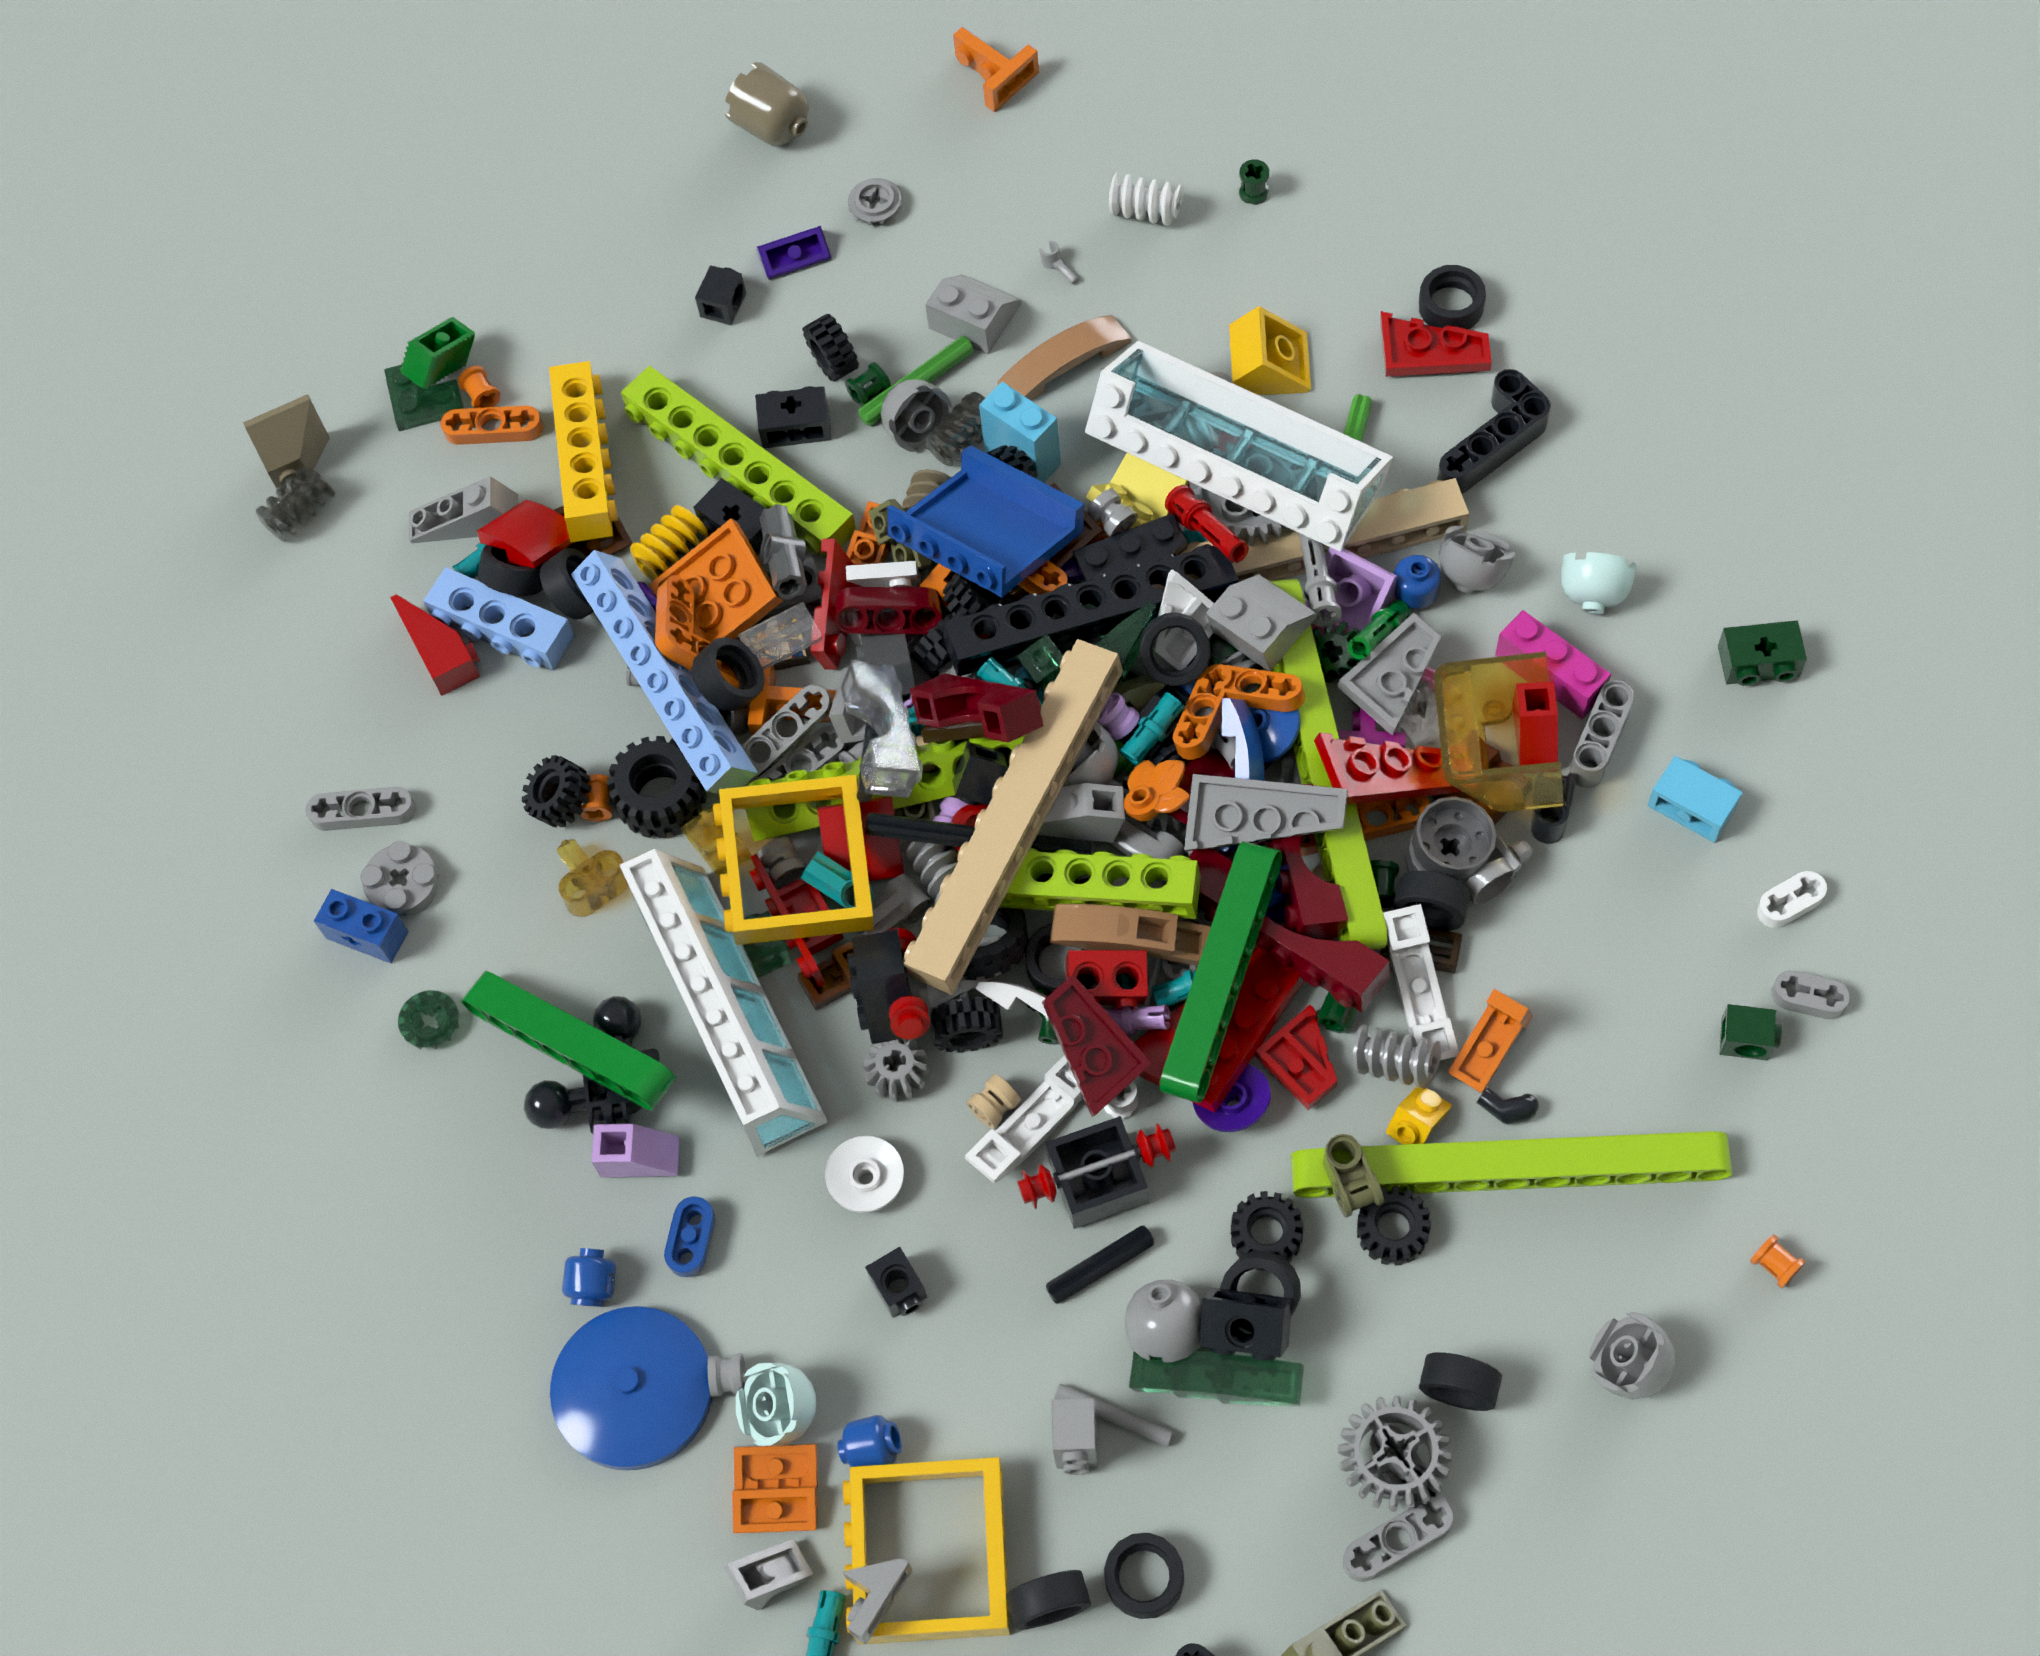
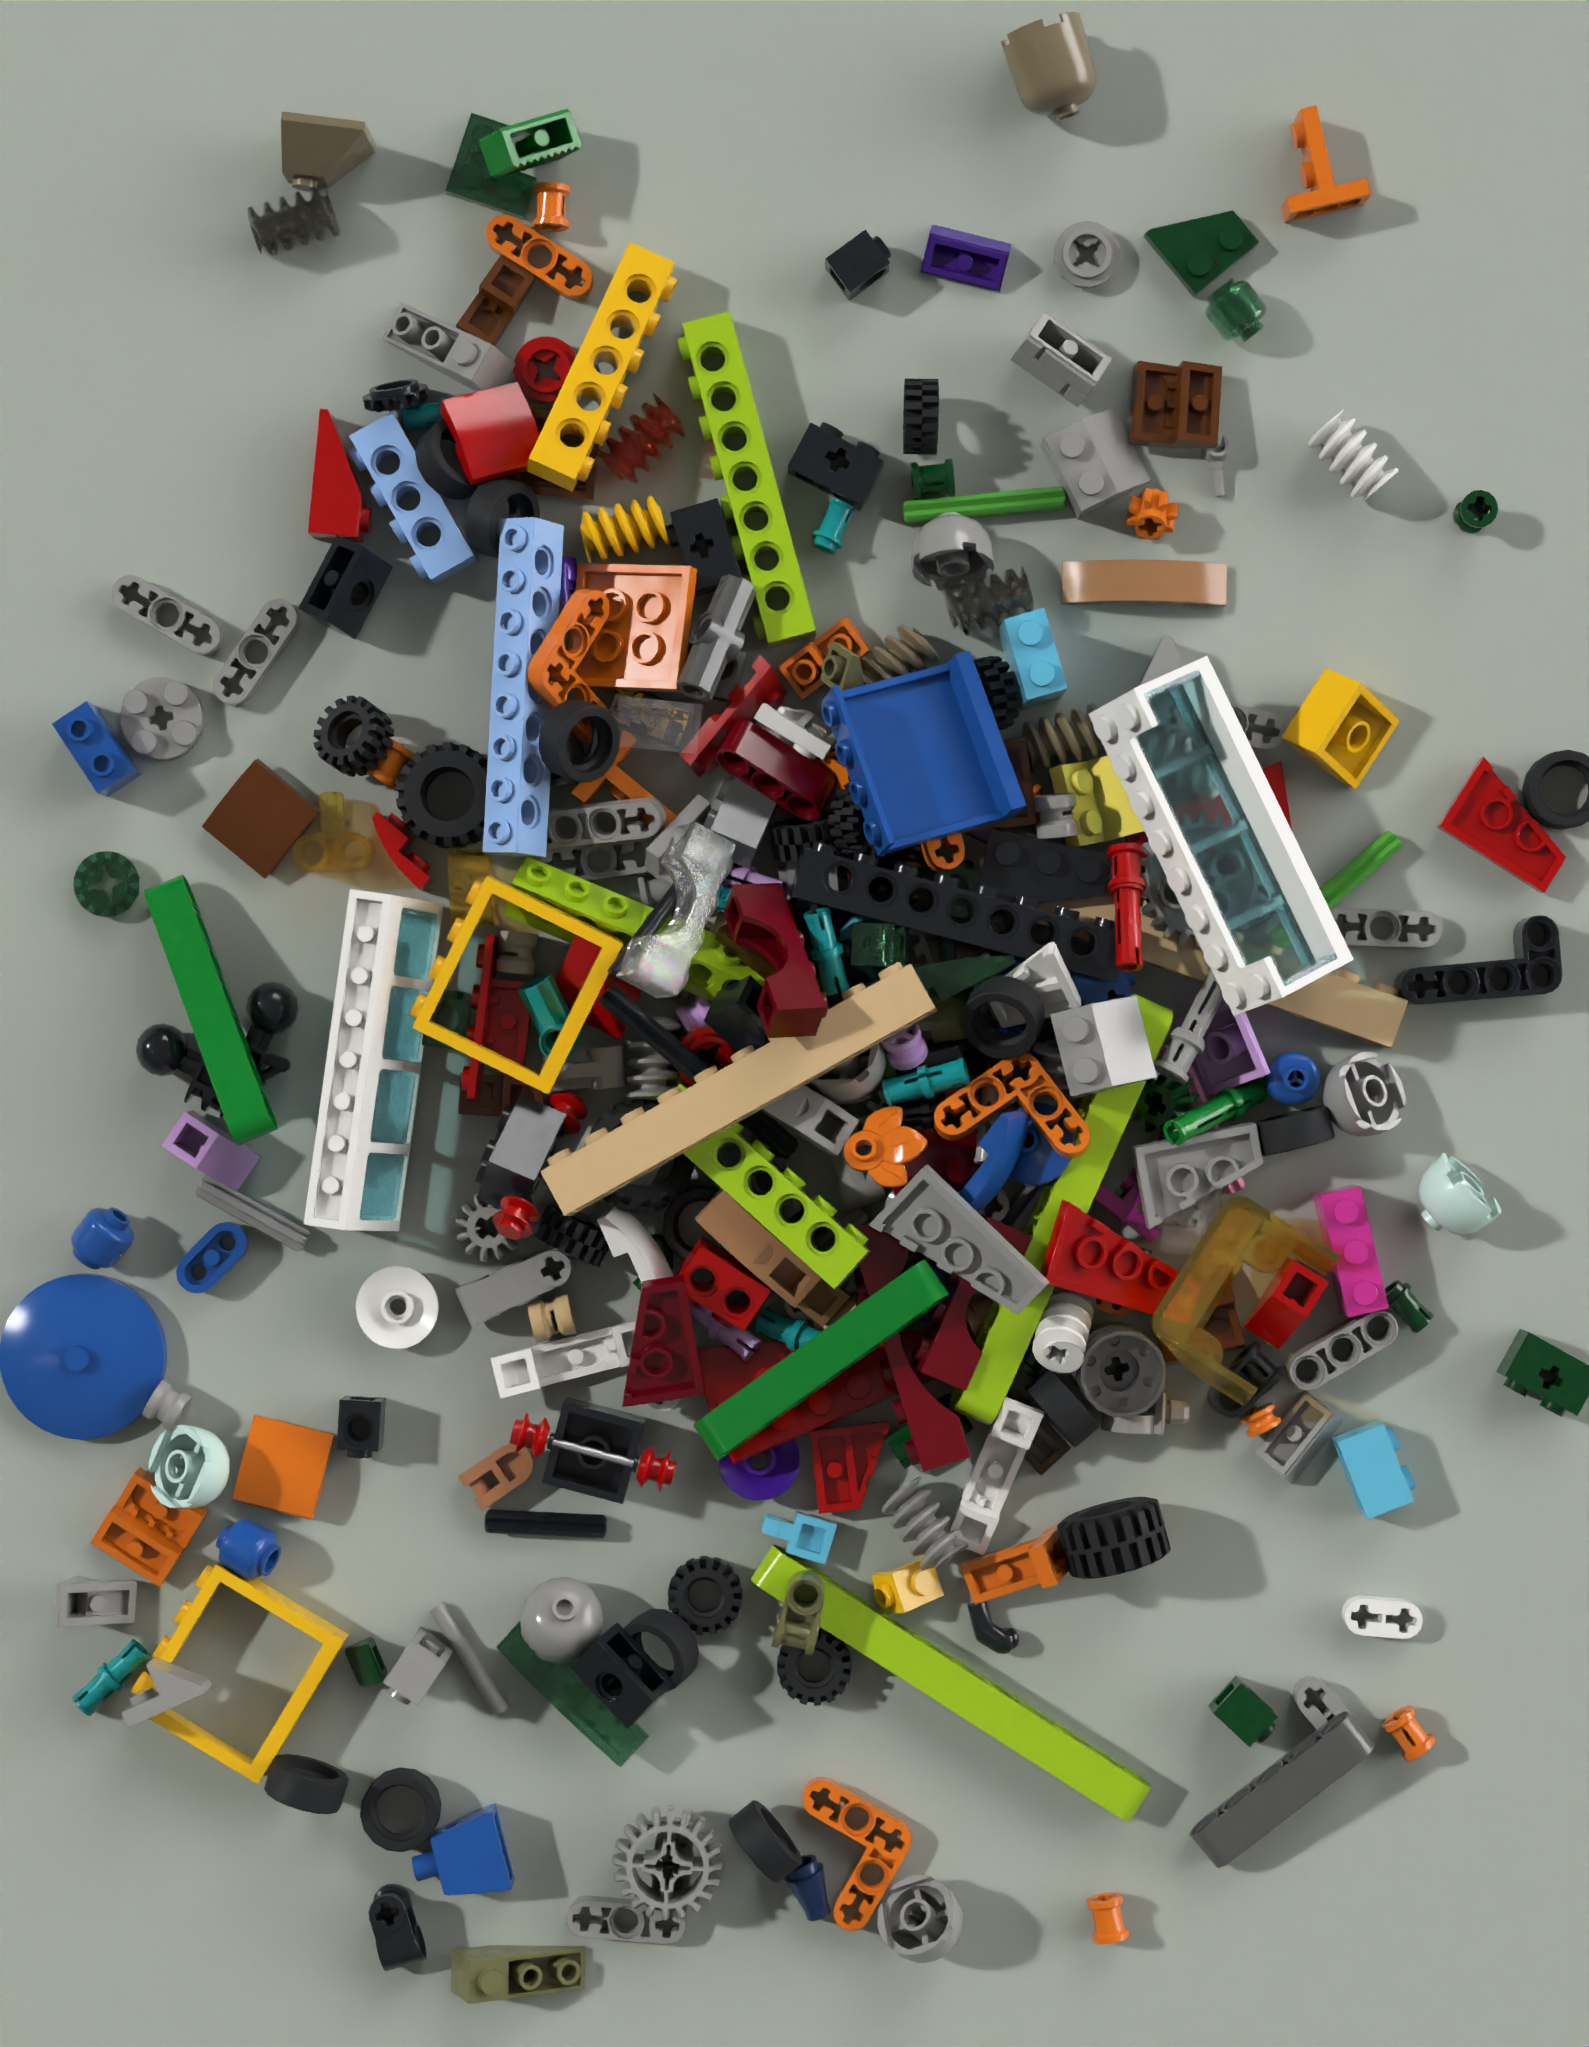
camera: 30 degrees right, 25 degrees up
(442, 556) = (395, 395): none -> black gear
(453, 805) = (262, 620): none -> light grey beam
(478, 458) = (497, 301): none -> reddish brown slope
(485, 699) = (345, 587): none -> black brick
(521, 897) = (261, 818): none -> reddish brown slope
(533, 478) = (542, 350): none -> red gear
(632, 842) = (395, 841): none -> red slope
(642, 483) = (641, 441): none -> clear red piece
(700, 1183) = (253, 1213): none -> light grey axle
(819, 461) = (833, 527): none -> teal pin
(855, 1362) = (283, 1467): none -> orange slope
(902, 261) = (1061, 359): none -> light grey brick
(946, 1096) = (512, 1286): none -> light grey piece
(949, 154) = (1202, 247): none -> dark green wing
(999, 168) = (1236, 310): none -> clear green head
(1003, 245) = (1175, 405): none -> reddish brown slope
(1026, 311) = (1151, 514): none -> orange gear
(1030, 1474) = (366, 1662): none -> dark green slope
(1038, 1235) = (508, 1468): none -> nougat plate
(1086, 469) = (1061, 737): none -> dark tan piece
(1227, 1573) = (468, 1855): none -> blue torso
(1308, 1131) = (806, 1536): none -> medium azure plate
(1388, 837) = (1064, 1331): none -> white piece
(1408, 444) = (1412, 917): none -> light grey beam
(1447, 605) = (1294, 1130): none -> black tyre
(1522, 1402) = (809, 1887): none -> dark blue cone
(1544, 960) = (1114, 1537): none -> black tyre
(1554, 1341) = (874, 1851): none -> orange beam
(1584, 820) = (1260, 1419): none -> orange bush
(1623, 817) = (1298, 1437): none -> light grey slope
(1635, 678) = (1407, 1306): none -> dark green pin
(1825, 1066) = (1282, 1789): none -> dark grey beam
(1883, 964) = (1408, 1733): none -> orange bush

